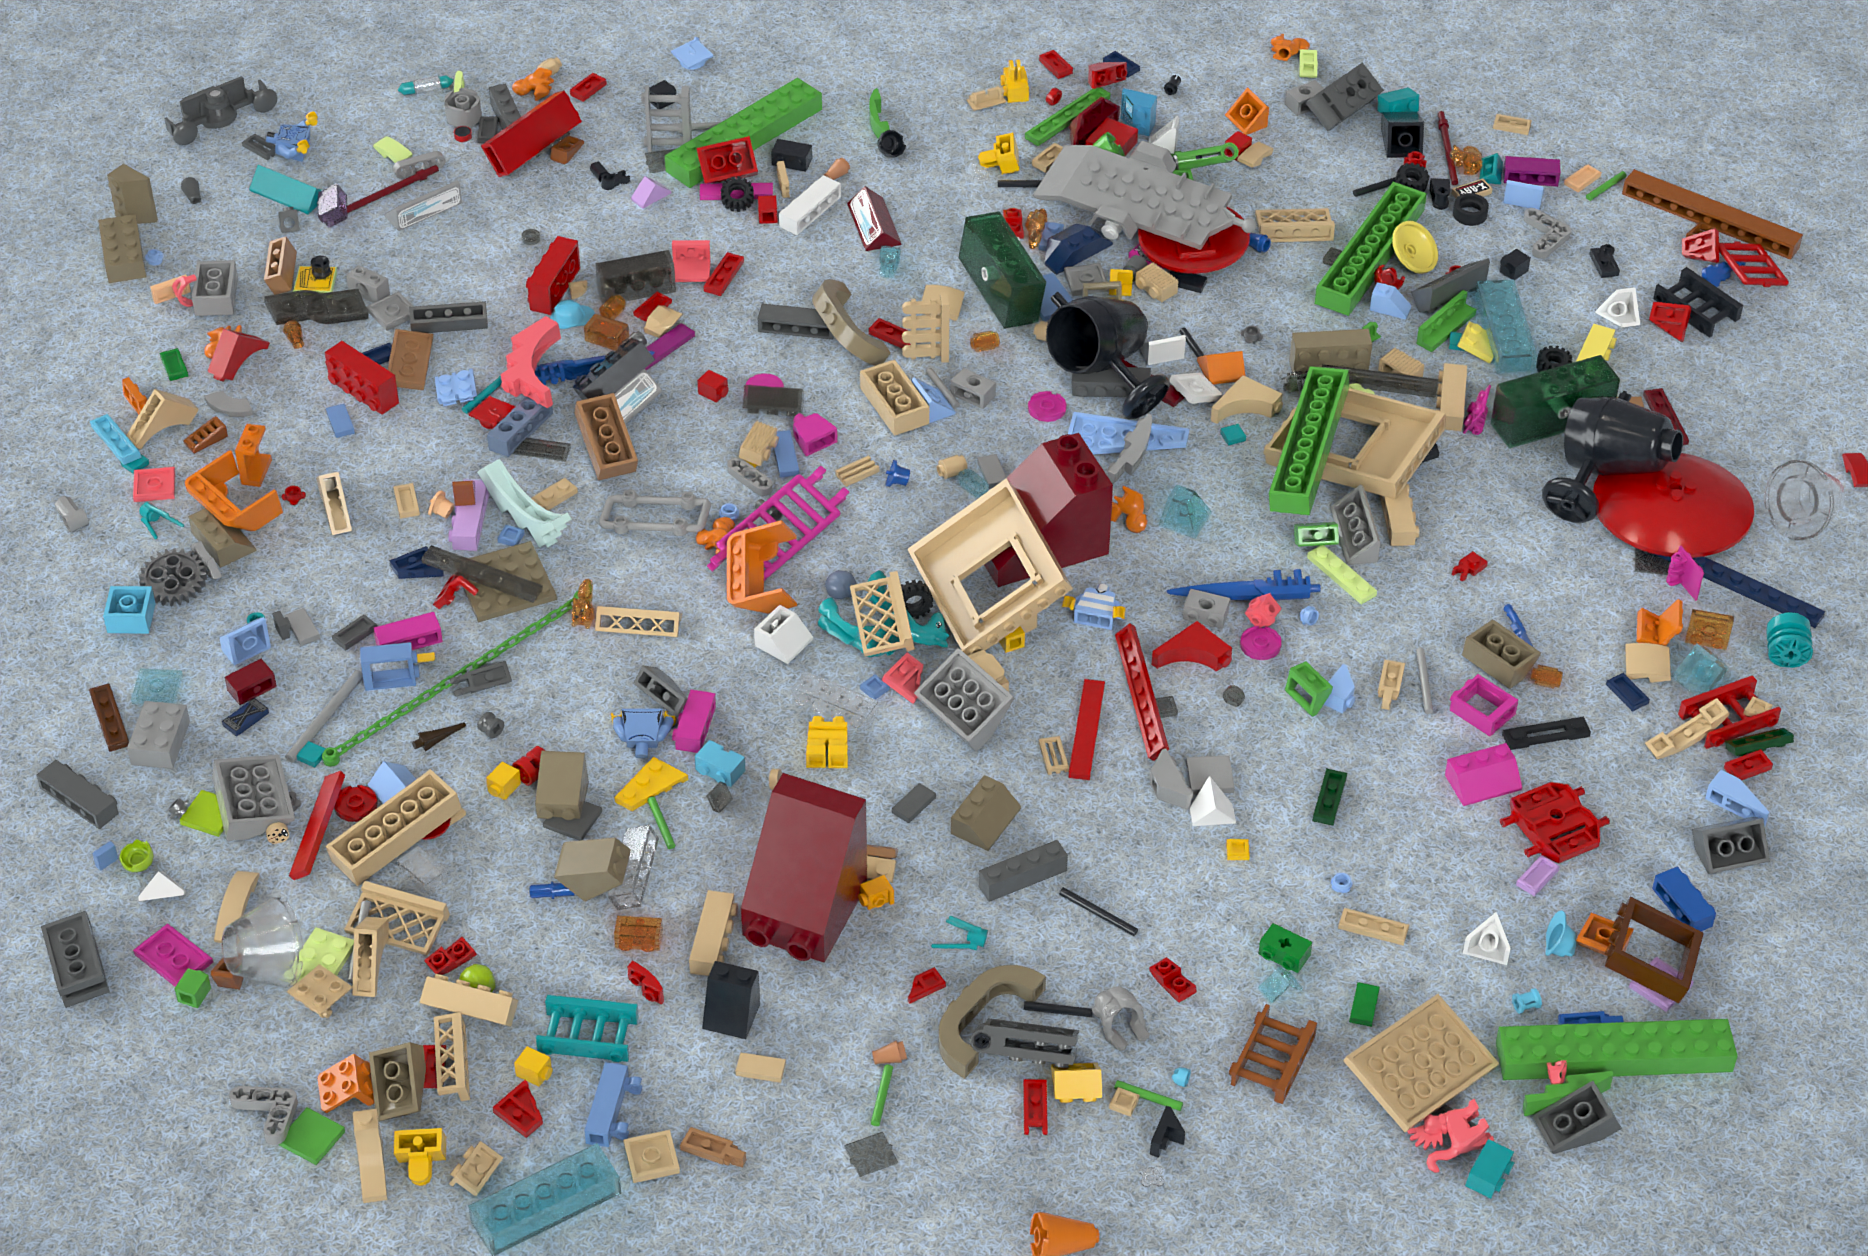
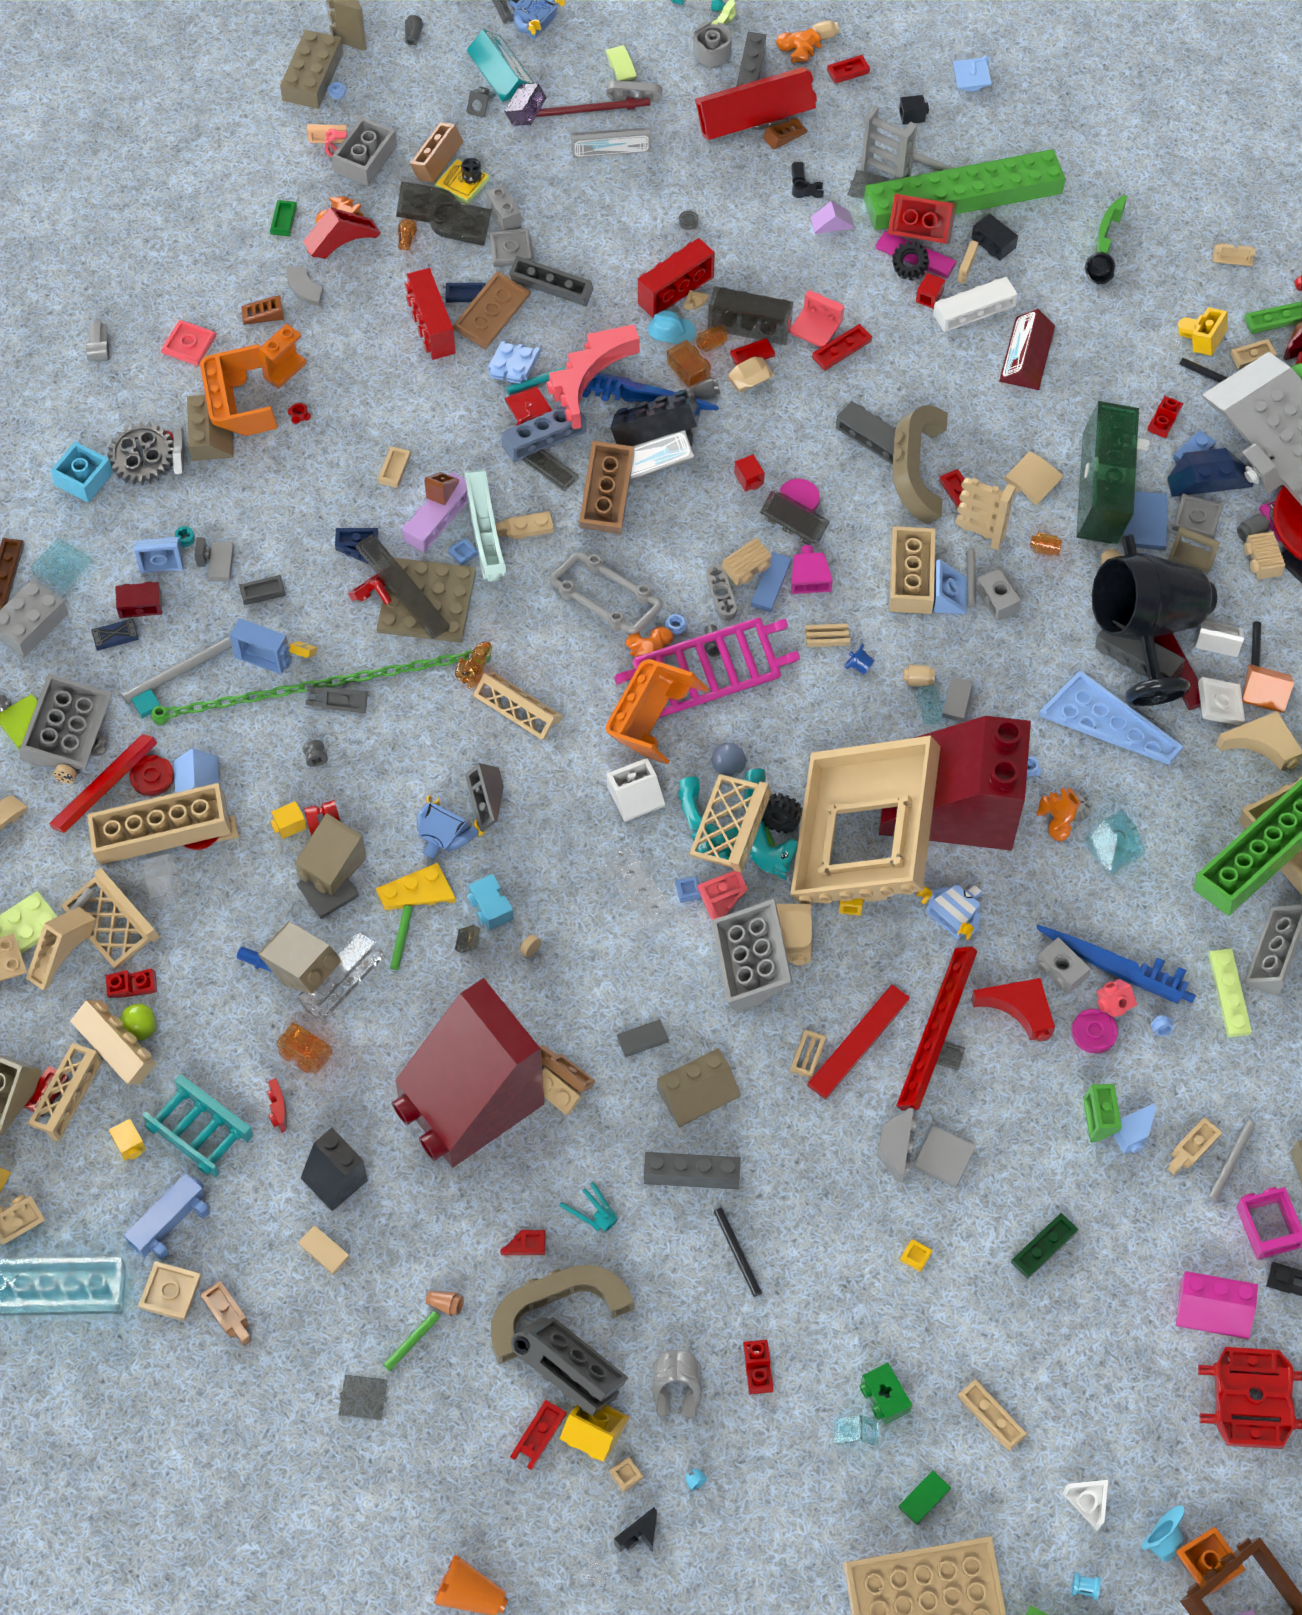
camera: 30 degrees right, 15 degrees up
(115, 439) = (183, 278): medium azure tile -> none
(133, 395) = (228, 259): orange hinge -> none
(136, 464) = (186, 310): teal tile -> none
(151, 513) = (165, 375): teal plant -> none
(159, 413) = (233, 270): tan arch -> none
(334, 502) = (326, 428): tan arch -> none
(340, 420) = (389, 349): medium blue tile -> none
(419, 630) = (303, 617): dark pink brick -> none
(430, 738) = (256, 739): dark brown piece -> none
(440, 505) = (416, 489): light nougat piece -> none
(462, 134) = (698, 72): tile -> none
(487, 128) = (724, 77): dark grey tile -> none
(519, 1110) = (90, 1178): red wing -> none
(670, 342) = (737, 404): magenta tile -> none
(694, 721) = (497, 843): dark pink brick -> none
(713, 931) = (367, 1085): tan brick -> none
(823, 736) = (607, 925): yellow hips -> none
(838, 168) = (1030, 273): nougat cone -> none
(876, 893) = (541, 1121): light orange brick -> none
(889, 261) = (1011, 405): clear light blue piece -> none
(1015, 82) = (1274, 249): yellow brick -> none
(1035, 226) = (1182, 432): clear orange animal -> none
(1047, 406) = (1060, 649): dark pink tile -> none
(1057, 1009) = (629, 1337): black bar -> none
(1125, 277) = (1229, 538): yellow panel -> none
(1134, 450) = (1114, 742): light grey slope -> none
(1151, 1096) = (653, 1481): bright green bar -> none
(1211, 806) = (921, 1195): white slope -> none
(1233, 434) = (1227, 773): teal tile -> none
(1233, 695) = (1025, 1080): clear smoke tile -> none
(1288, 1069) = (800, 1530): dark orange fence -> none
(1316, 534) = (1230, 935): bright green brick -> none
(1341, 878) = (995, 1345): light blue plate -> none
(1537, 875) = (1196, 1448): lavender tile -> none

